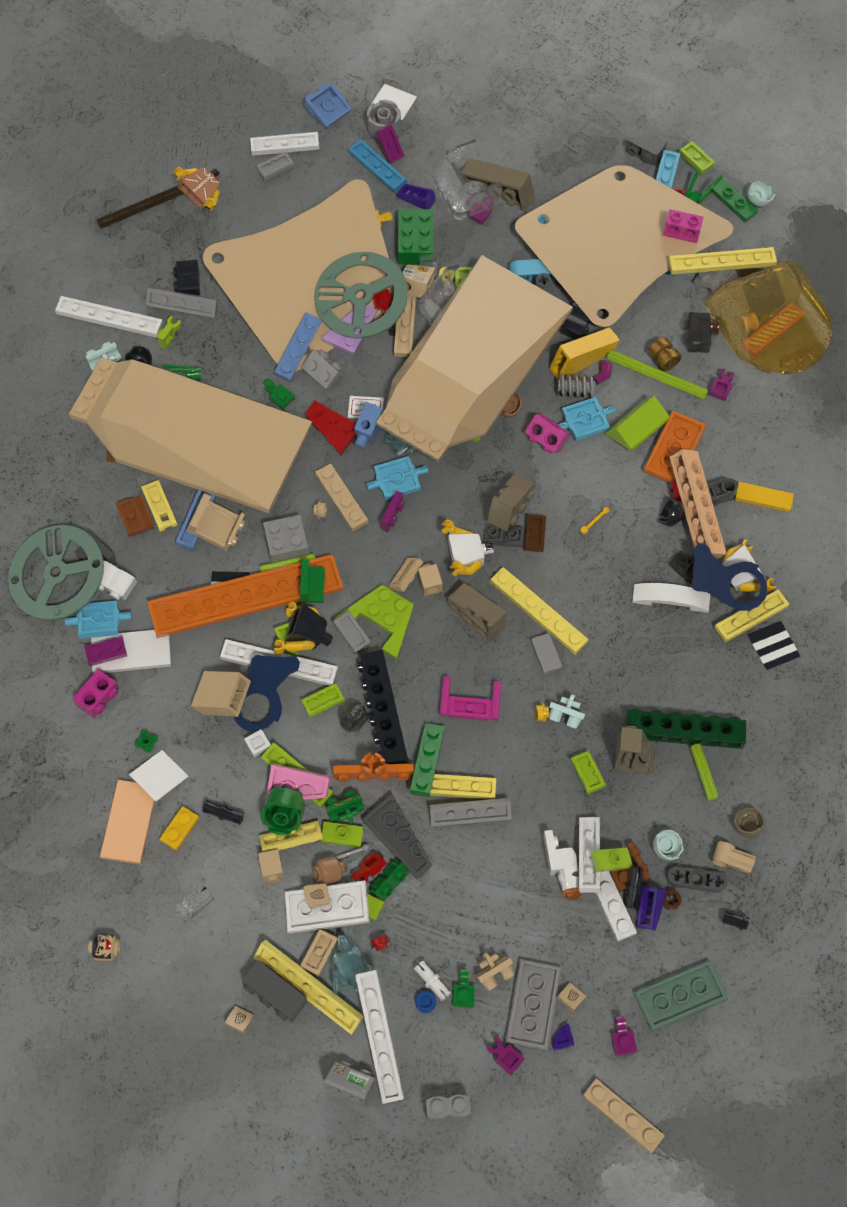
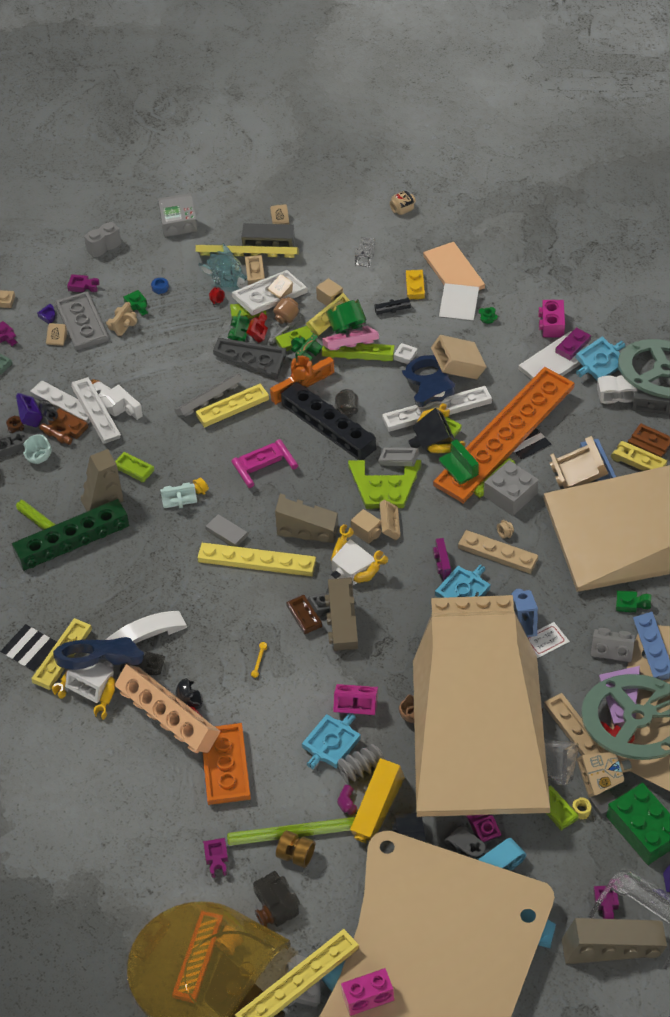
camera: 150 degrees right, 15 degrees down
(323, 700) = (380, 403): lime plate -> none
(335, 428) = (559, 603): red wing -> none
(379, 1036) = (176, 243): white plate -> none
(427, 760) = (266, 406): green plate -> none
(432, 981) = (163, 296): white pin -> none
(611, 859) = (74, 409): lime plate -> none
(639, 423) = (277, 761): lime slope -> none
(718, 492) = (156, 743): dark grey piece -> none
(764, 497) = (109, 769): yellow tile -> none

